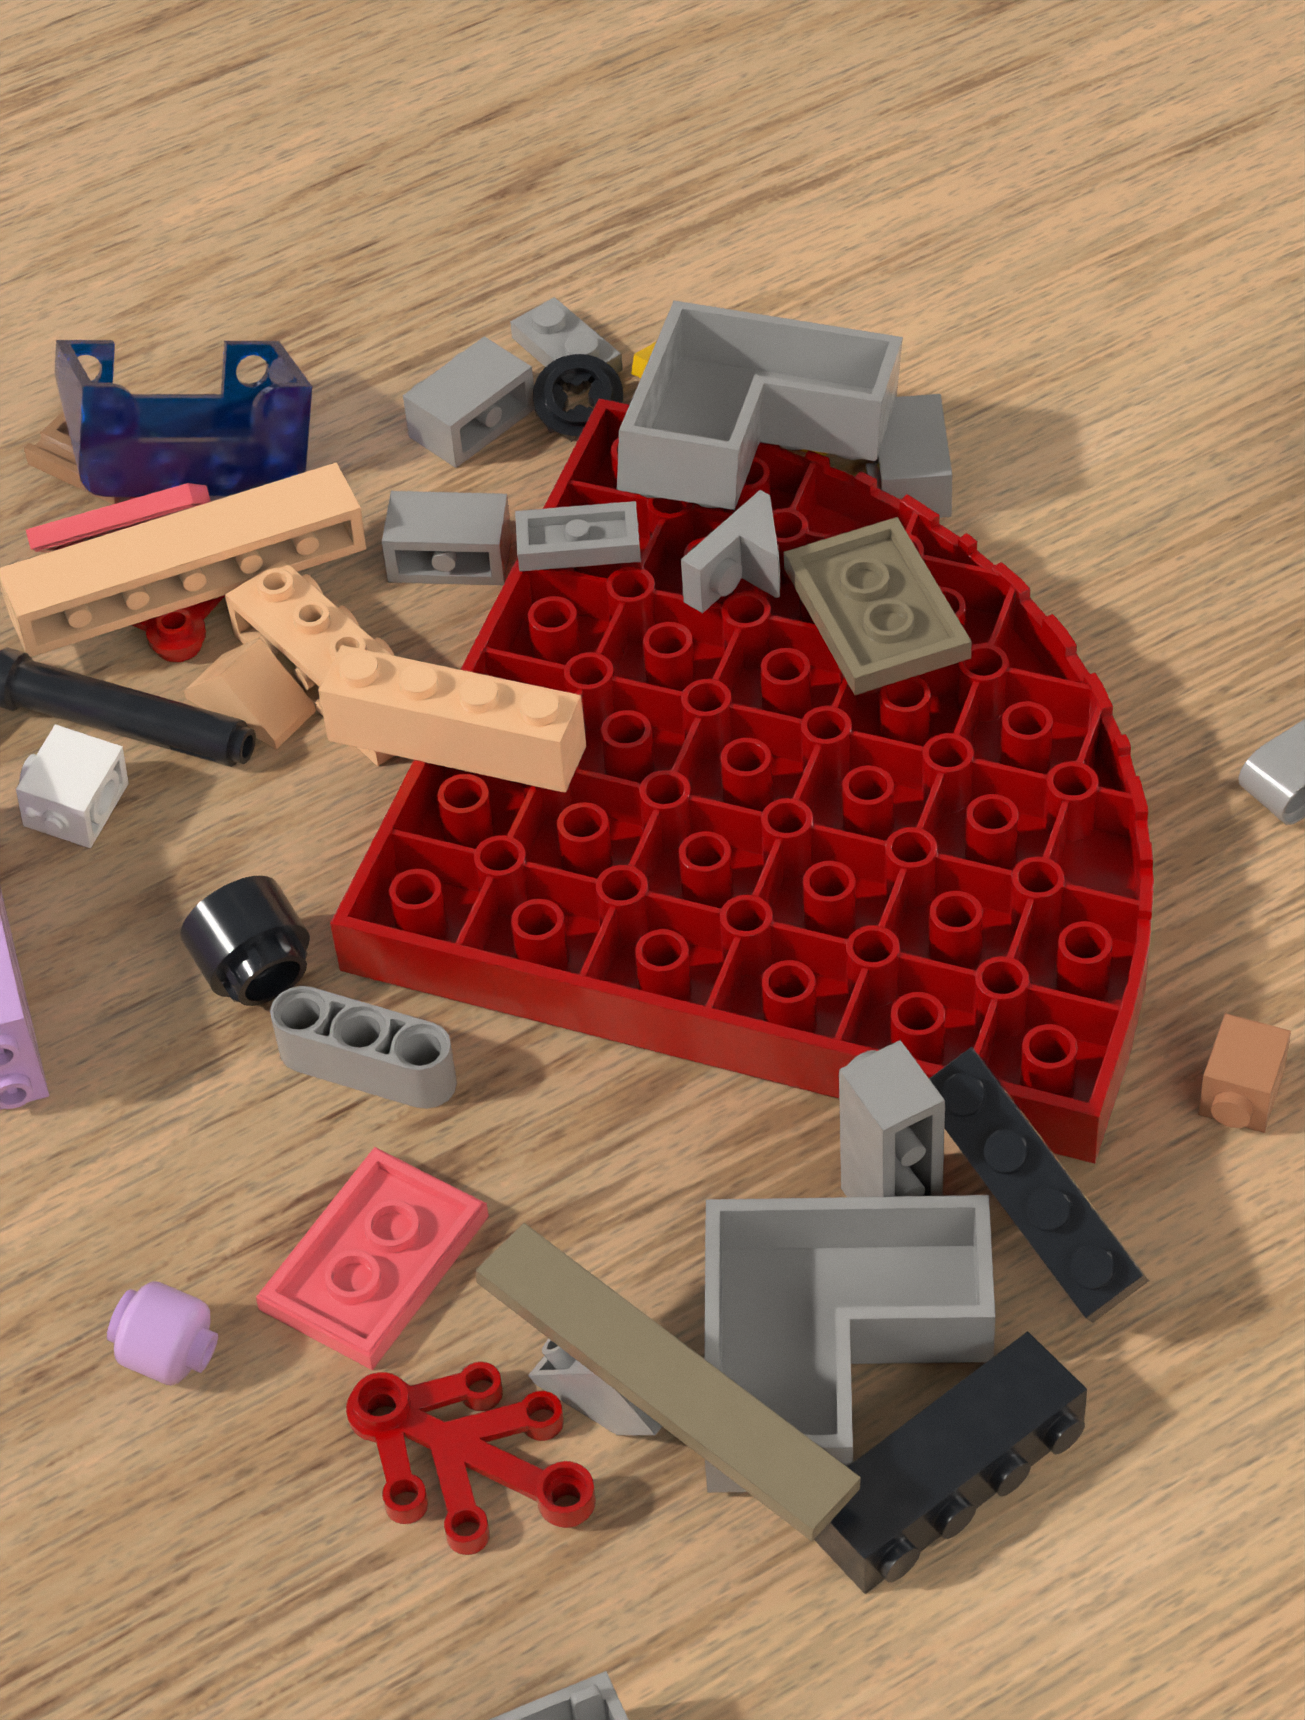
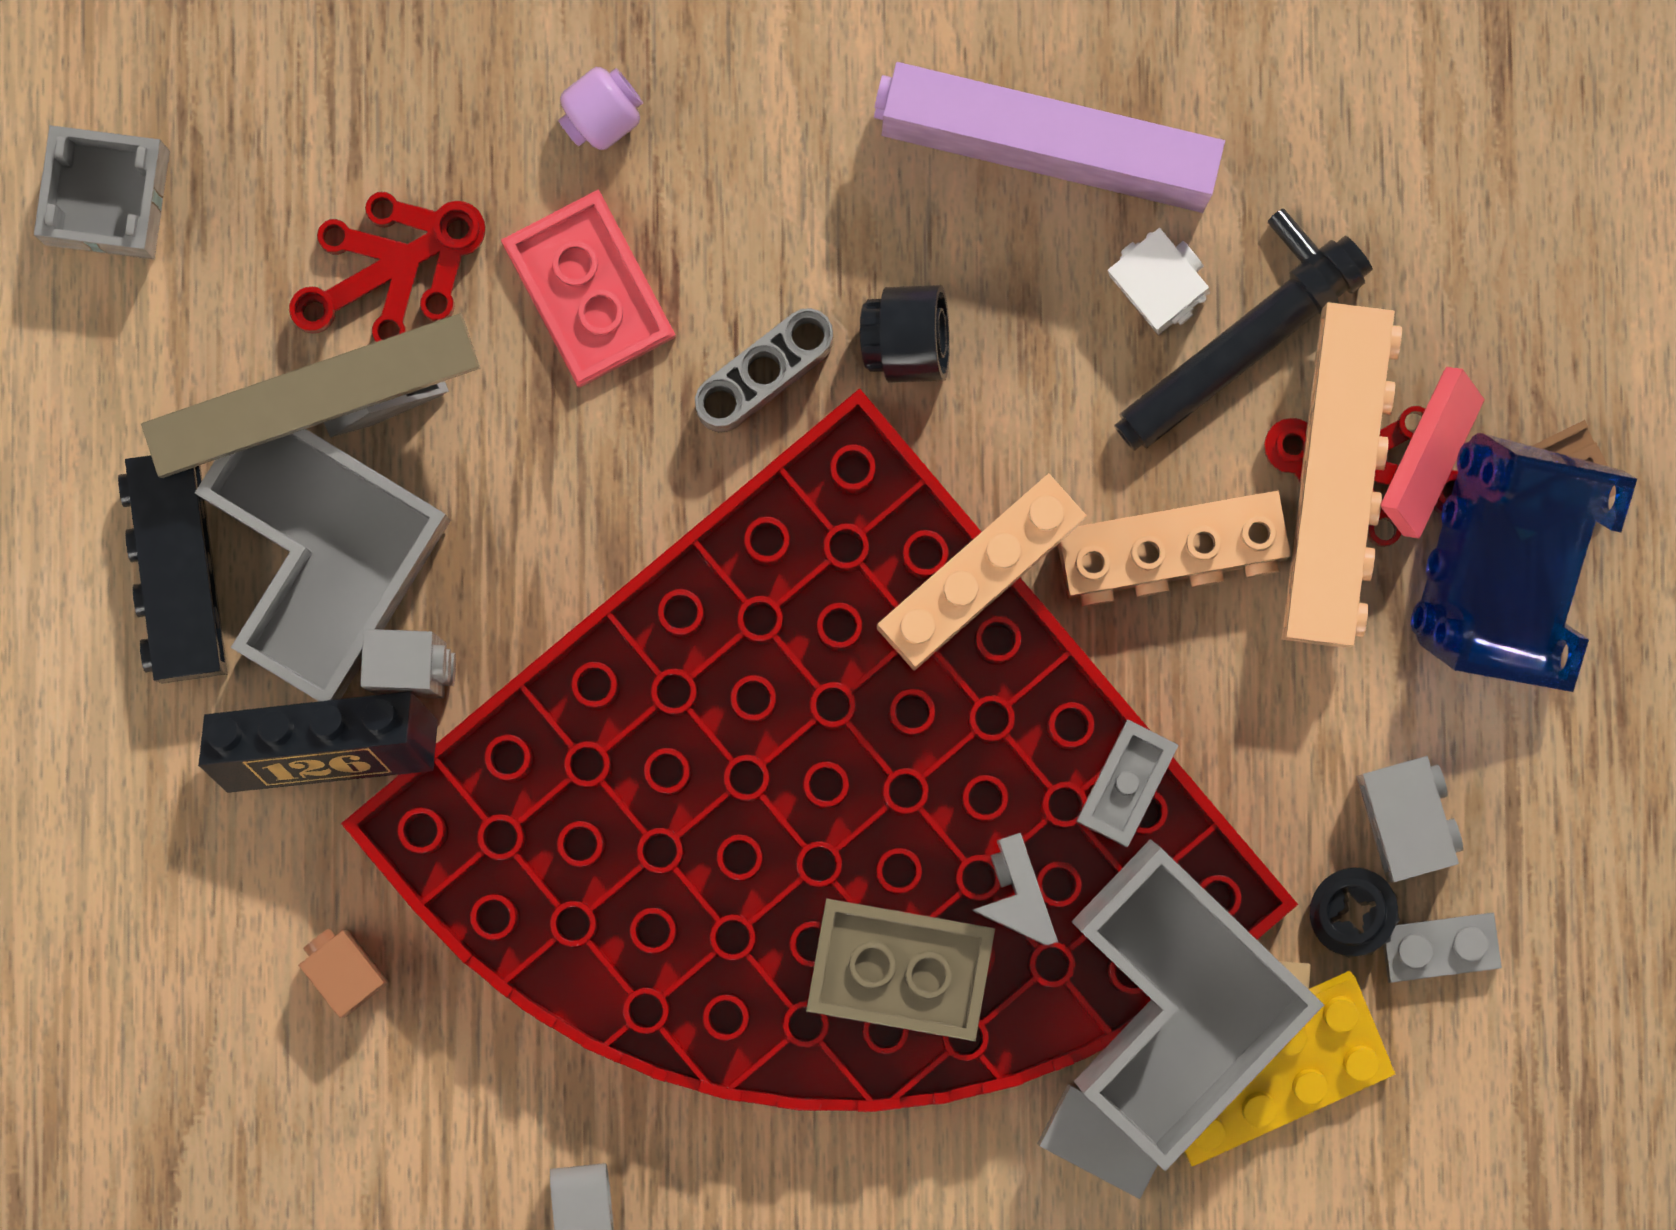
camera: 115 degrees right, 35 degrees up
(256, 689) = (1186, 468): light nougat slope -> none
(447, 538) = (1255, 713): light grey brick -> none

